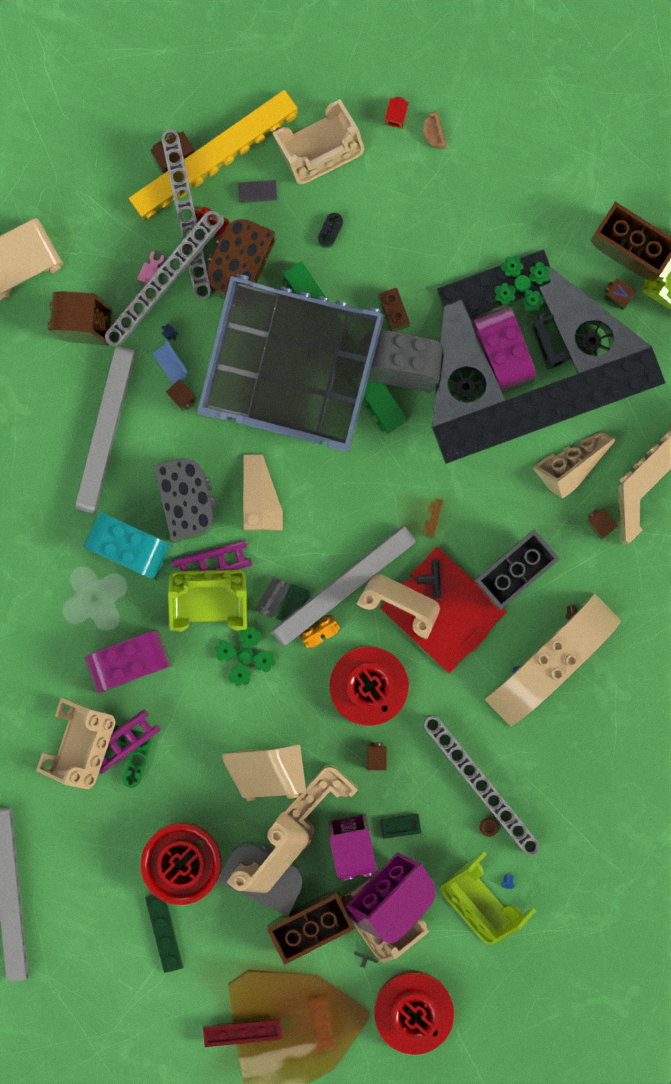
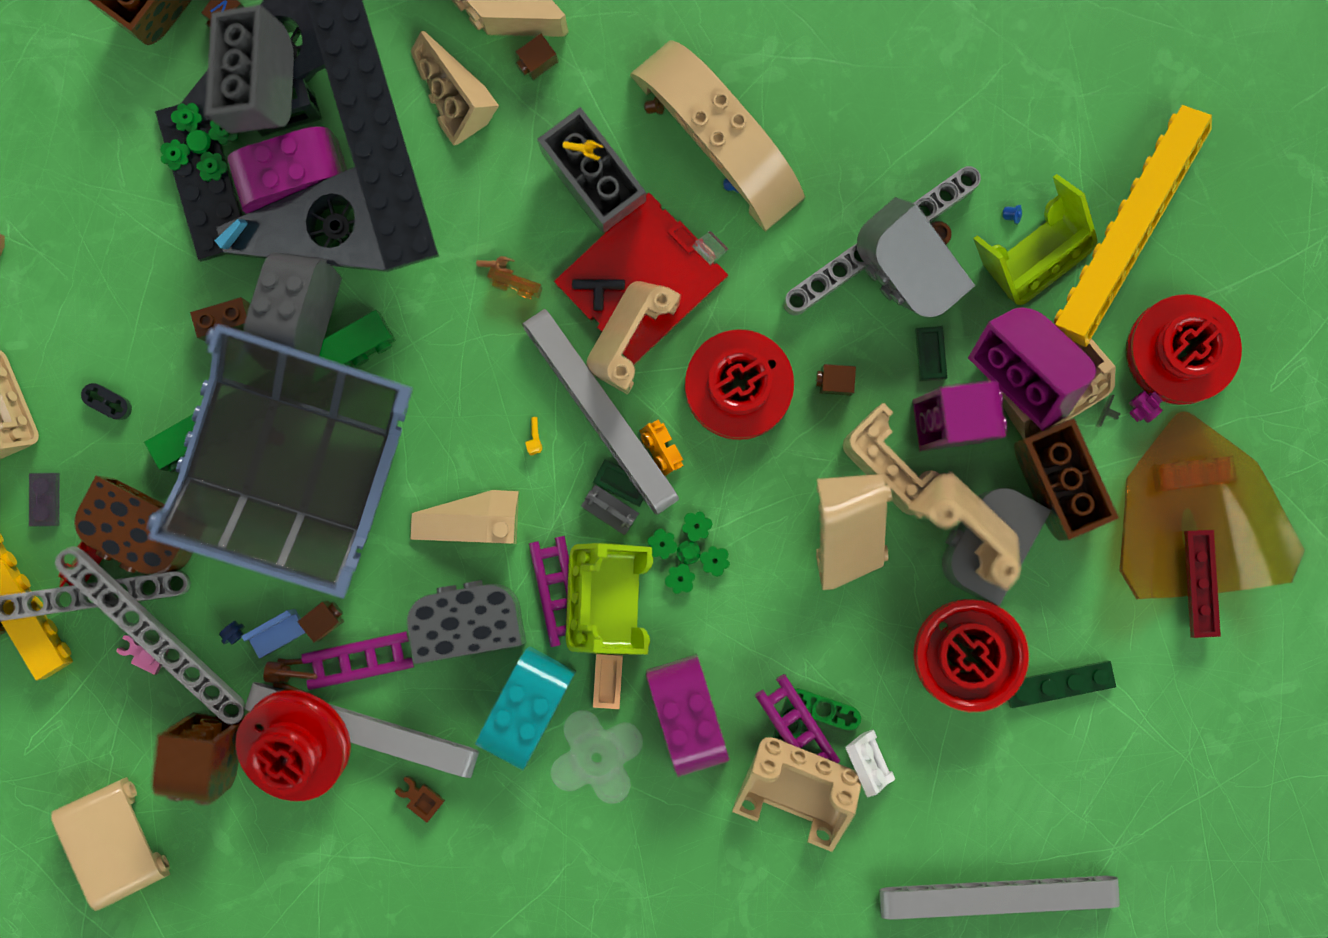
camera: 90 degrees left, 0 degrees up
(56, 476) = (423, 801): none -> reddish brown plate
(90, 387) = (299, 748): none -> red wheel
(100, 794) = (869, 763): none -> white plate
(142, 367) = (279, 672): none -> reddish brown plant
(148, 433) = (372, 668): none -> magenta bar
(149, 603) = (607, 681): none -> light nougat tile
(316, 539) = (534, 446): none -> yellow hand
(370, 986) = (1145, 406): none -> magenta gear
(447, 506) = (499, 264): none -> medium nougat hand
(452, 309) = (228, 237): none -> medium azure piece
(464, 806) = (911, 260): none -> brick
(468, 659) = (710, 247): none -> clear tile
(503, 970) = (1133, 225): none -> yellow brick
(528, 565) = (586, 148): none -> yellow hand
(567, 321) = (249, 70): none -> dark grey brick

